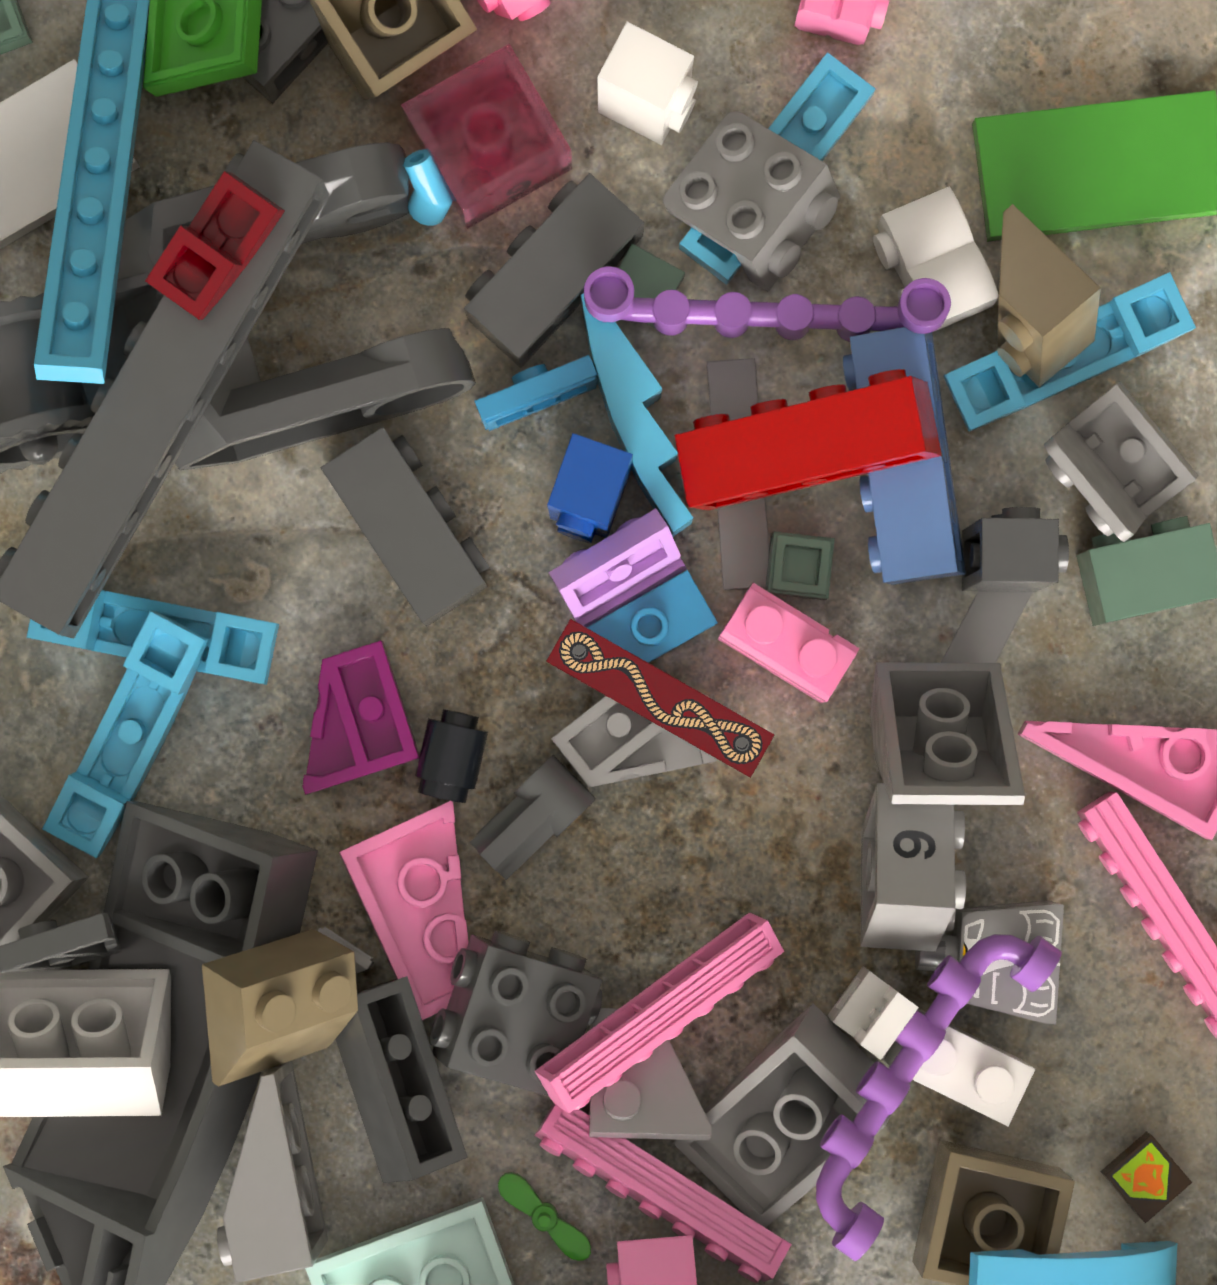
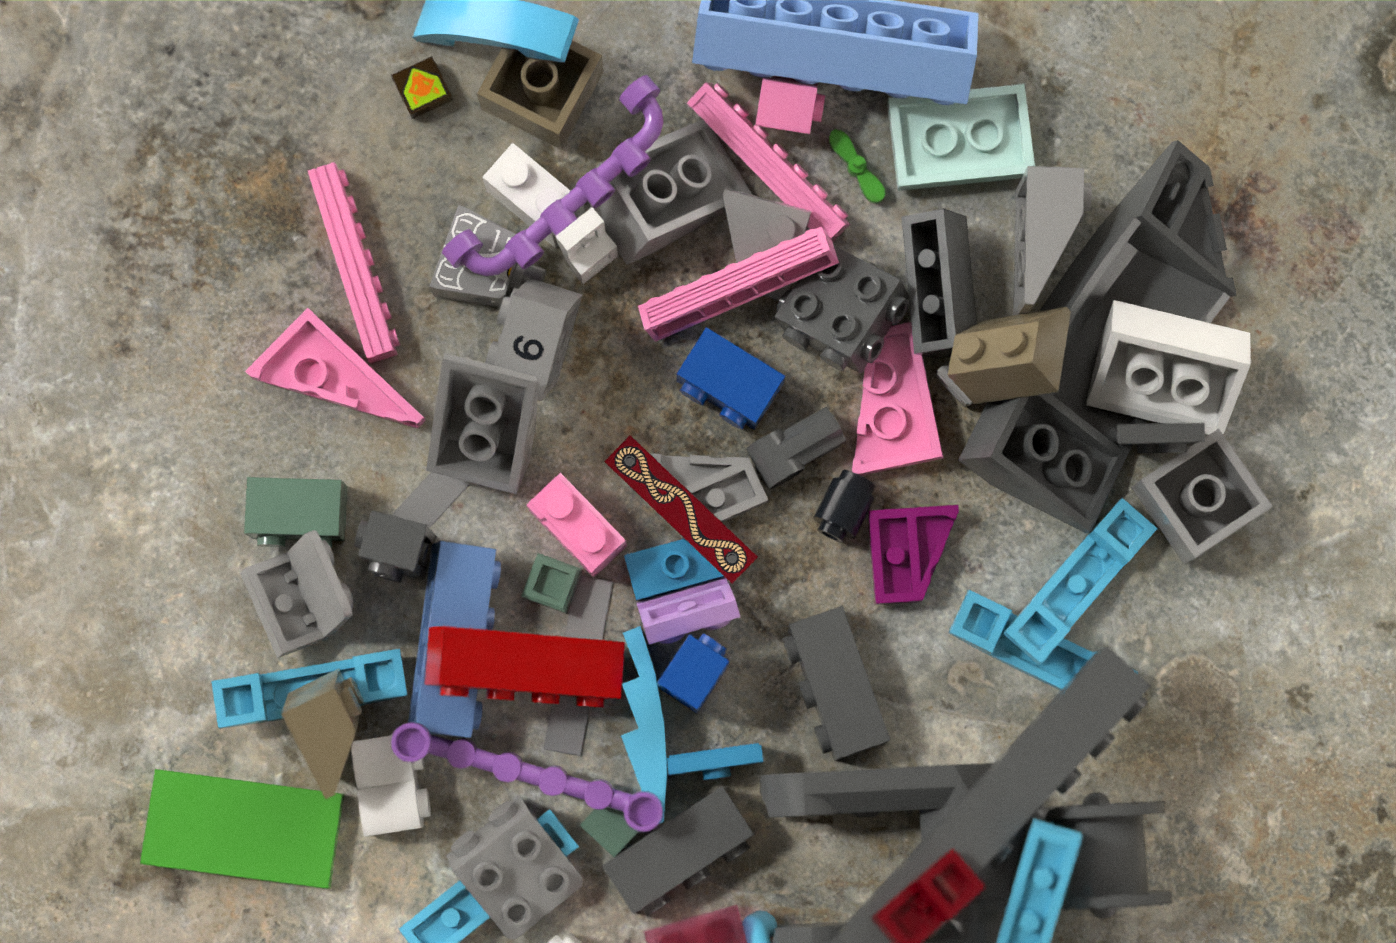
camera: 165 degrees left, 5 degrees down
(641, 884) = (729, 380): none -> blue brick

